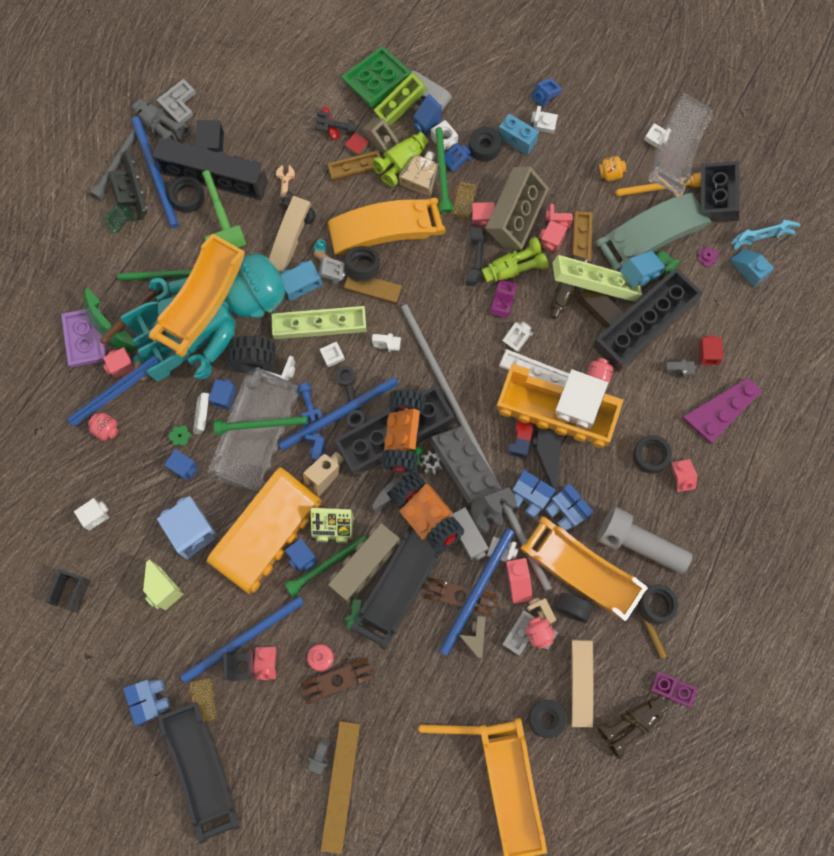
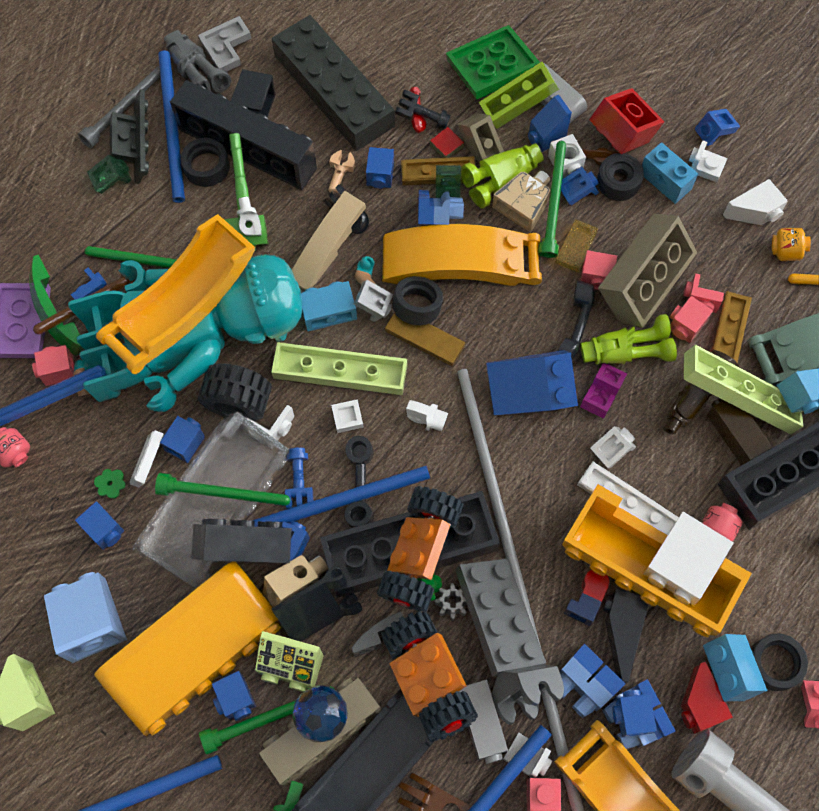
camera: 10 degrees right, 5 degrees down
(132, 298) = (96, 282): none -> blue bracket
(230, 227) = (248, 214): none -> white piece
(264, 115) = (333, 82): none -> pearl dark grey brick
(282, 453) = (241, 541): none -> black brick
(313, 172) = (380, 167): none -> blue brick
(342, 485) = (316, 607): none -> black flag
(362, 195) = (439, 209): none -> medium blue hips
(362, 549) = (320, 714): none -> clear blue piece
(364, 174) = (448, 179): none -> clear green bracket
(454, 304) = (532, 383): none -> blue slope
(467, 130) = (599, 154): none -> reddish brown piece
(481, 102) = (626, 120): none -> red brick
(565, 506) = (634, 714): none -> blue brick
(584, 145) = (757, 205): none -> white slope
(609, 490) = (703, 701): none -> red slope
(624, 463) = (734, 667): none -> dark azure brick

